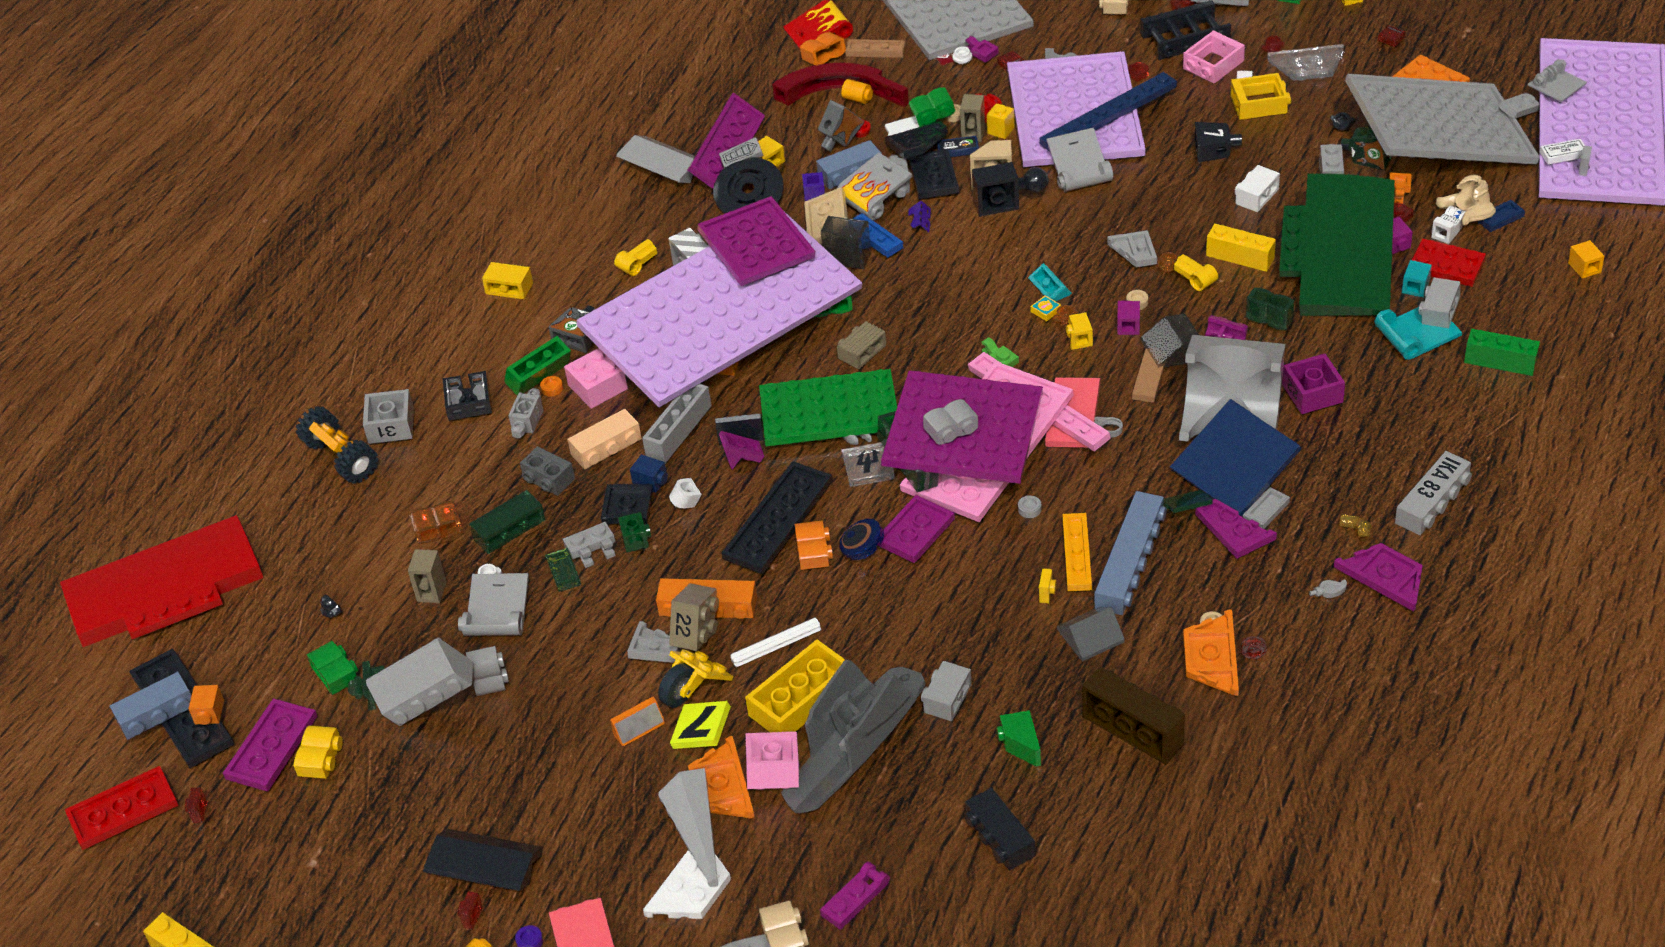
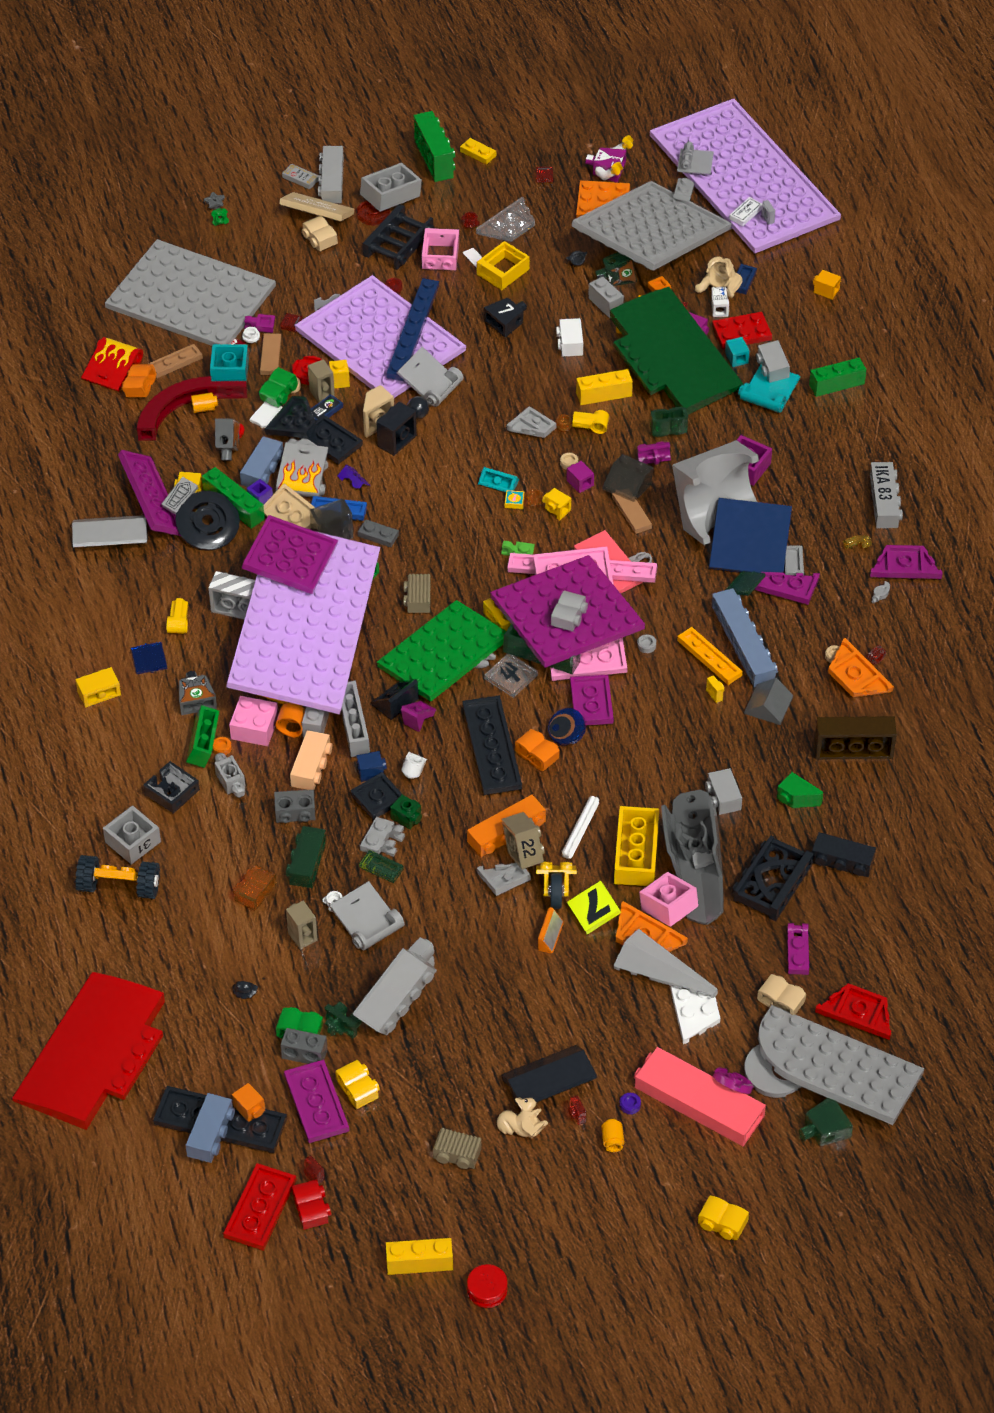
camera: 45 degrees left, 5 degrees up
(158, 834) = (310, 1204): none -> red brick
(312, 687) = (303, 1046): none -> dark grey brick
(329, 871) = (457, 1148): none -> dark tan brick
(411, 884) = (525, 1123): none -> tan animal
(579, 280) = (149, 658): none -> clear blue piece
(624, 390) = (289, 713): none -> orange helmet
(643, 408) = (314, 720): none -> light grey brick
(791, 180) = (249, 508): none -> green brick
(888, 275) = (378, 533): none -> dark grey plate
(904, 828) = (778, 901): none -> black fence
(911, 67) = (229, 362): none -> teal brick
(965, 77) = (270, 353): none -> medium nougat tile
(1469, 50) = (610, 161): none -> torso

